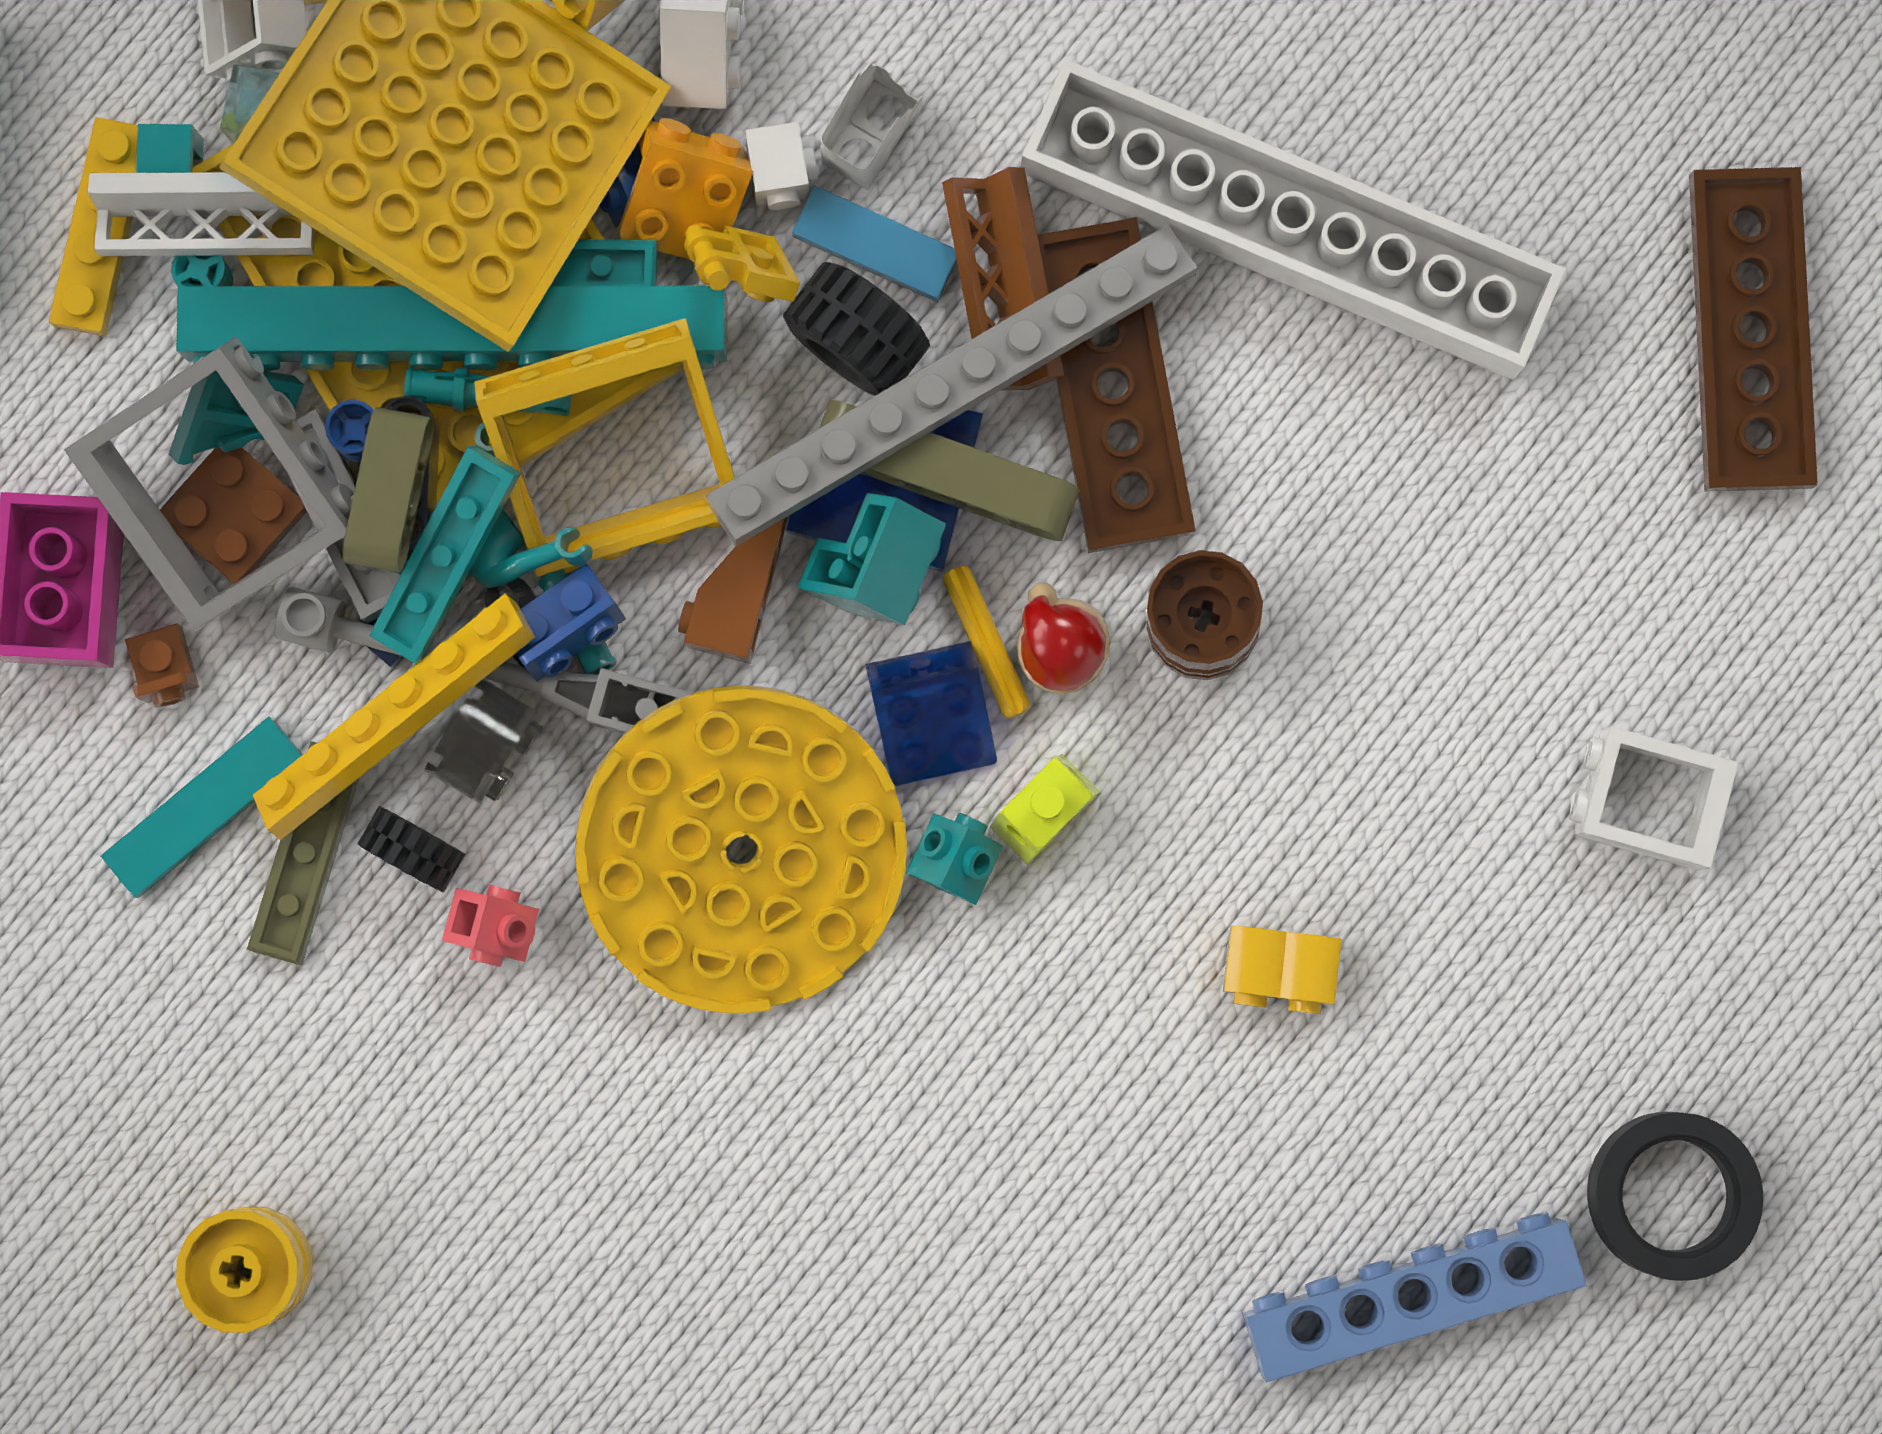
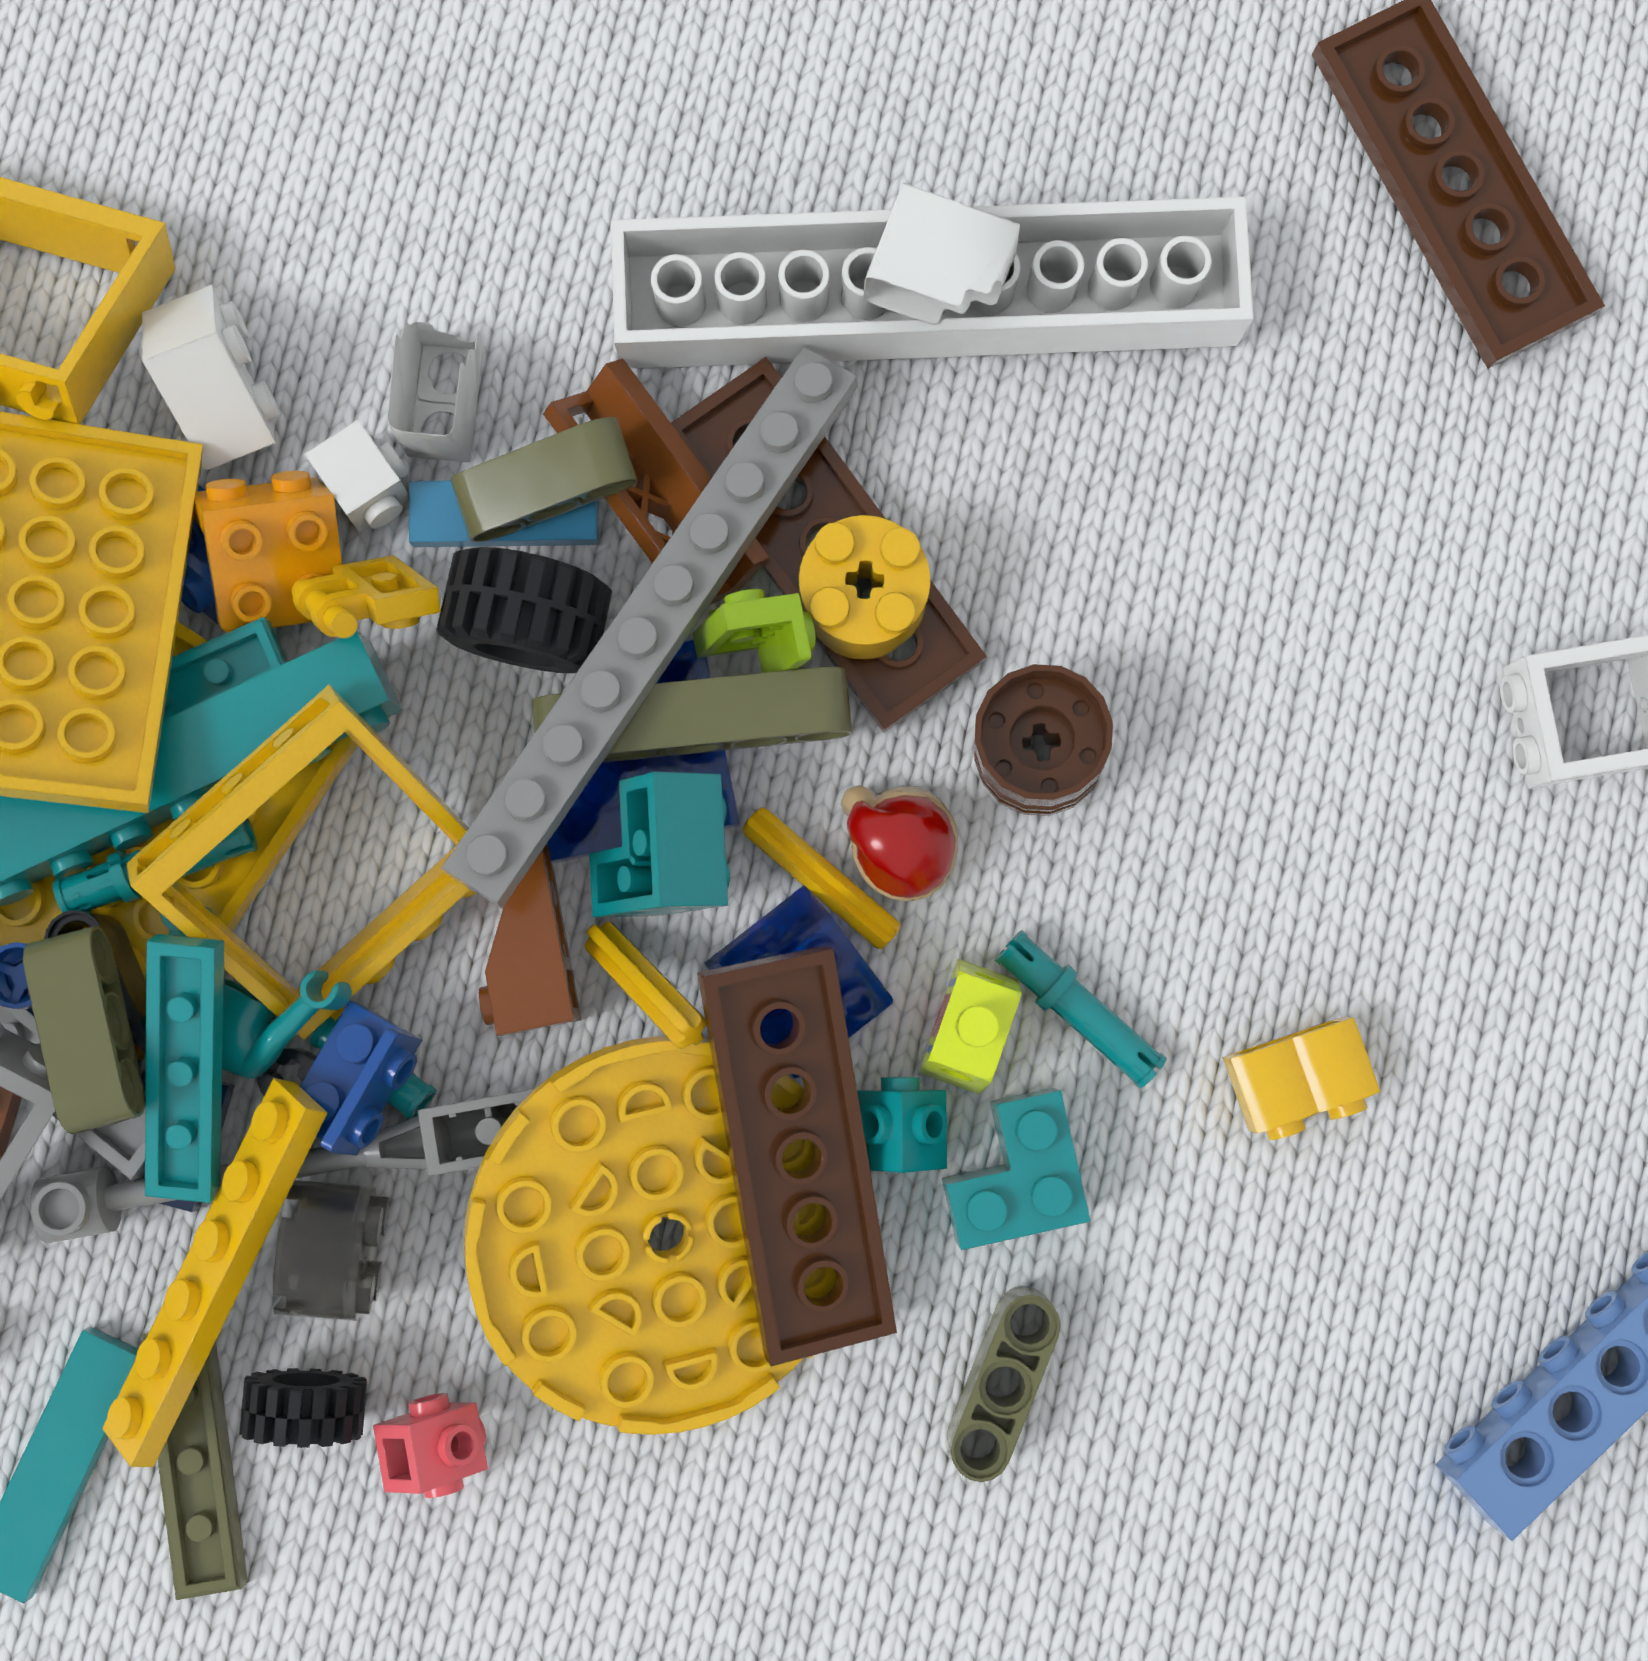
camera: 30 degrees left, 0 degrees up
(813, 655) = (645, 985): none -> yellow axle
(845, 806) = (758, 1134): none -> reddish brown plate
(914, 1094) = (1004, 1414): none -> olive beam
(918, 236) = (544, 479): none -> olive beam
(1024, 419) = (751, 622): none -> lime bracket
(1037, 951) = (1035, 1186): none -> teal brick
(1116, 402) = (869, 550): none -> yellow brick
(1137, 835) = (1077, 1006): none -> teal pin
(1300, 208) = (939, 257): none -> white piece

